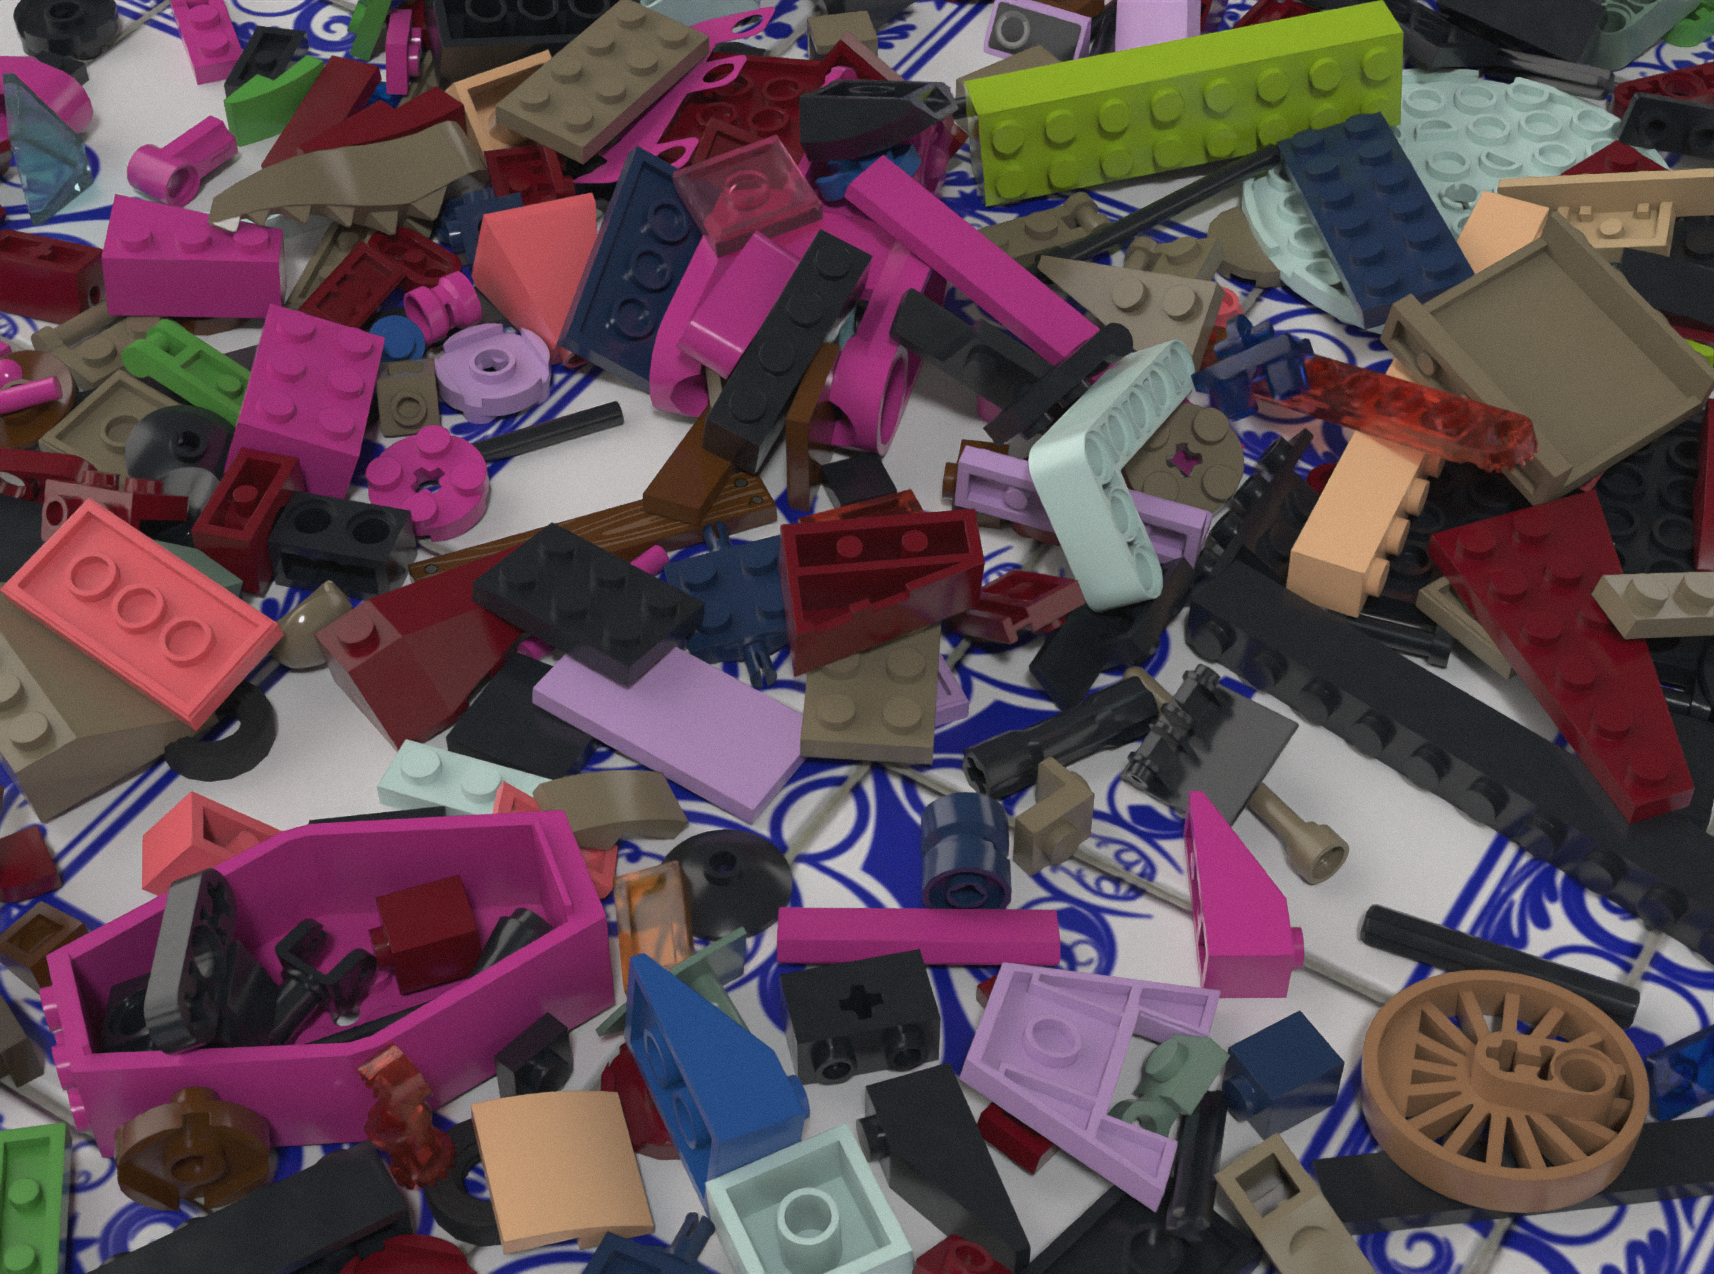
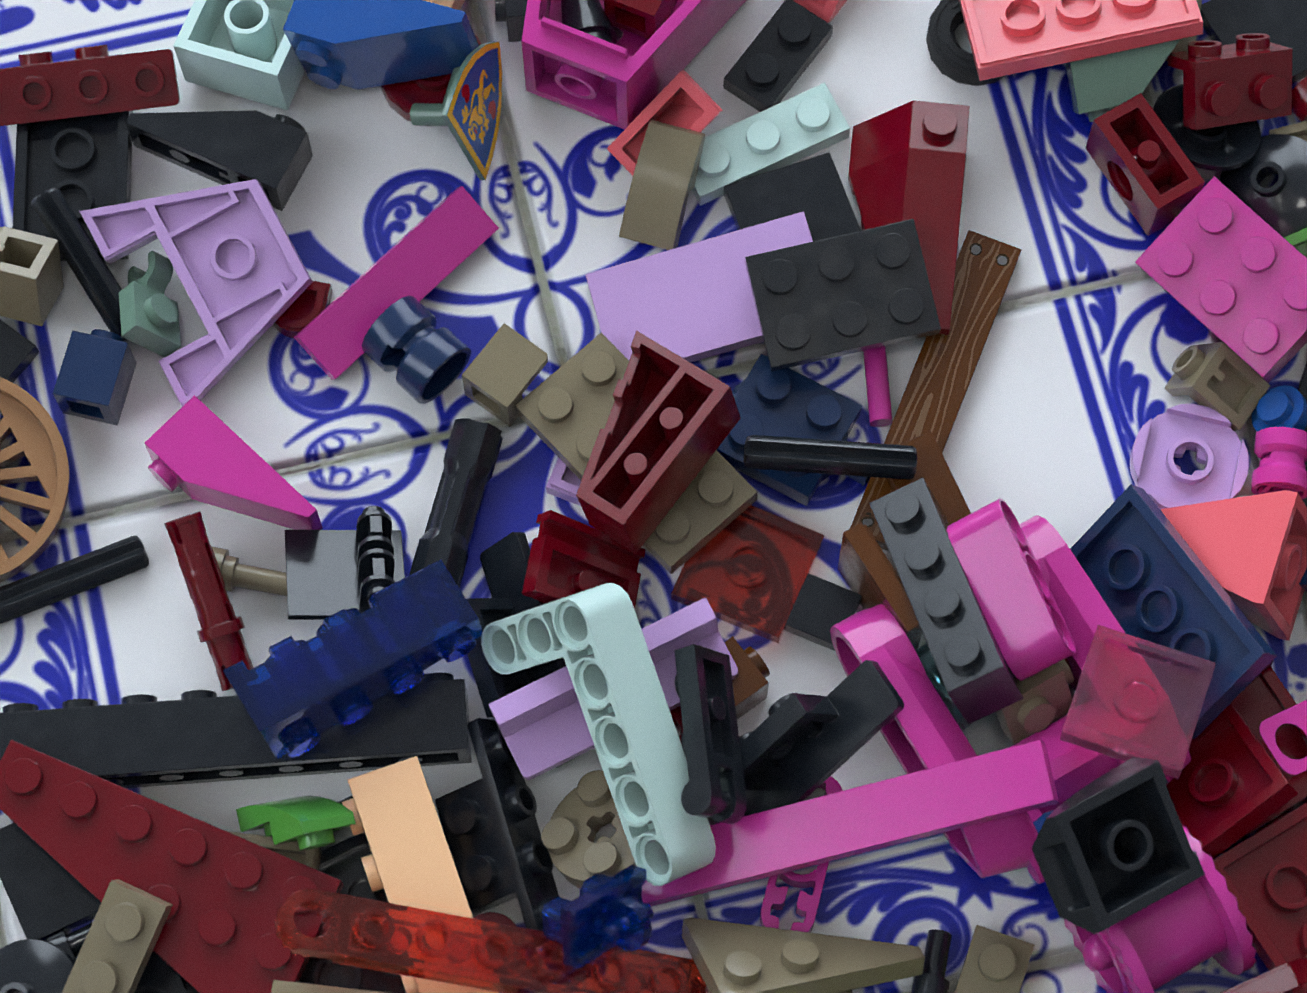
camera: 135 degrees right, 25 degrees up
(298, 645) = (1005, 136): dark tan hair -> none
(343, 541) = (1064, 207): black brick -> none
(426, 457) = (1092, 291): dark pink plate -> none
(550, 432) = (1090, 444): black bar -> none
(653, 916) = (552, 147): clear orange tile -> none
(730, 512) = (830, 457): none -> black axle
(745, 895) = (562, 249): black dish -> none
(859, 1017) = (369, 220): black brick -> none
(904, 782) = (503, 373): none -> dark tan panel
(1058, 820) = (387, 428): dark tan bracket -> none
(1286, 626) = (356, 660): none -> clear blue wedge
(1353, 800) = (207, 590): none -> dark red pin
(1421, 603) = (299, 819): none -> bright green slope

